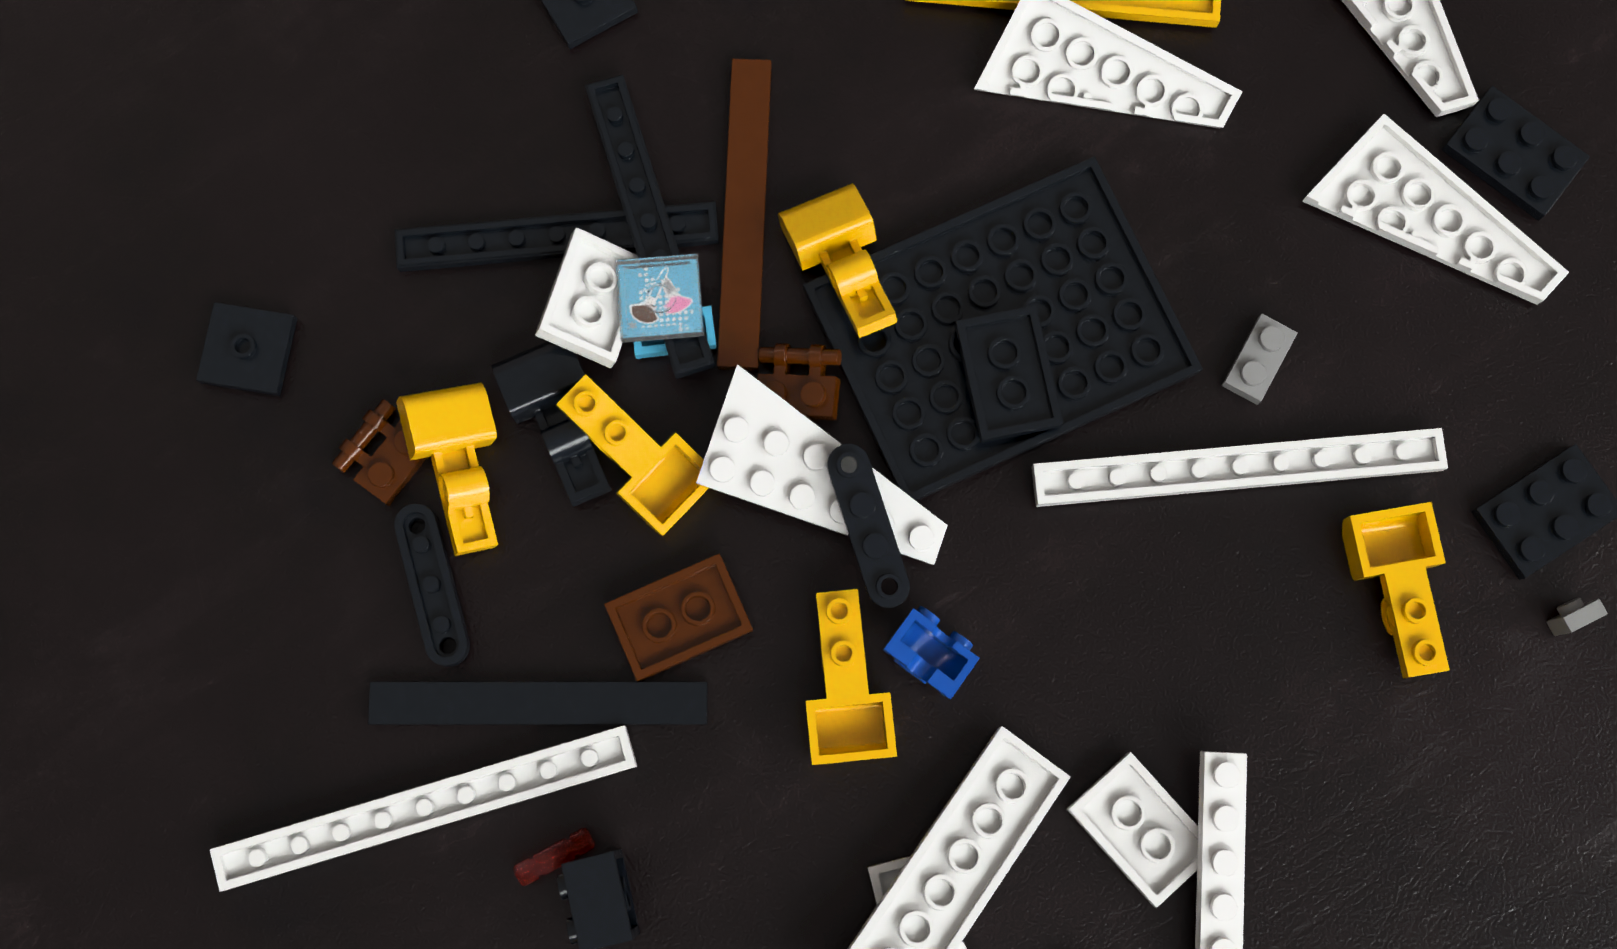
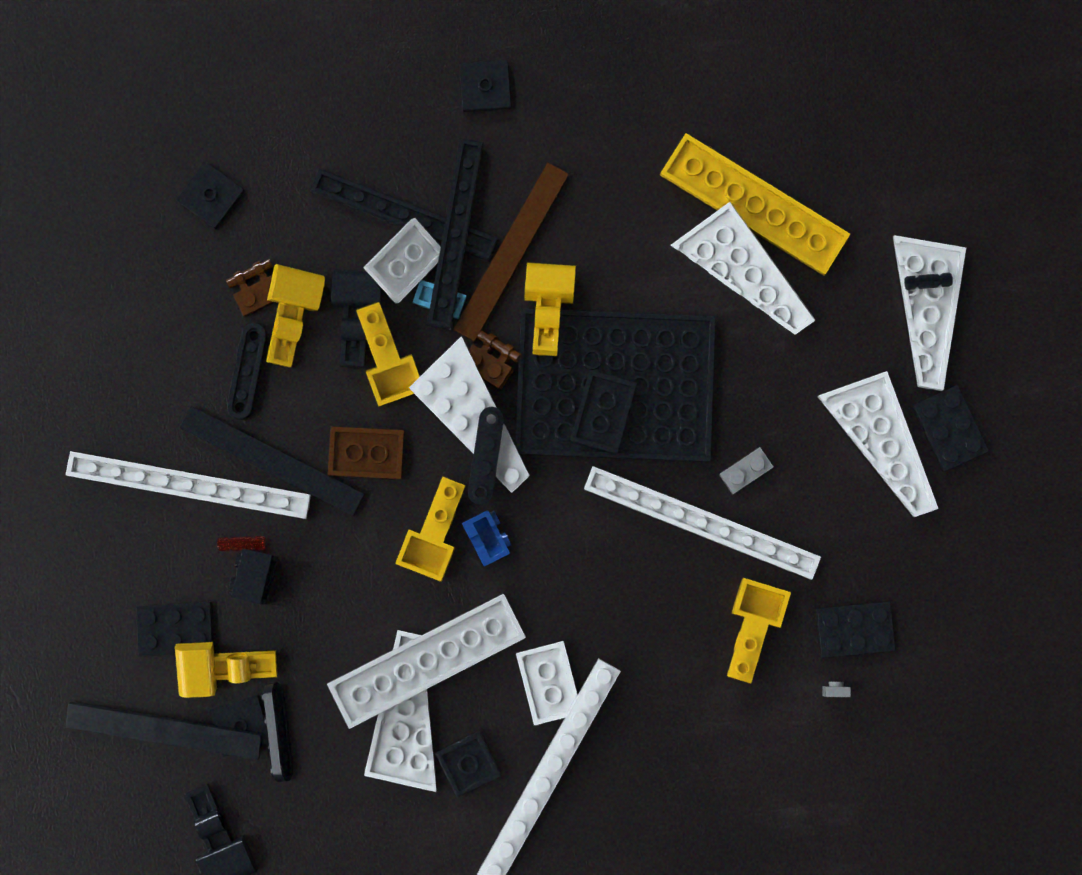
camera: 30 degrees right, 5 degrees up
(659, 298) = (439, 279): clear tile -> none

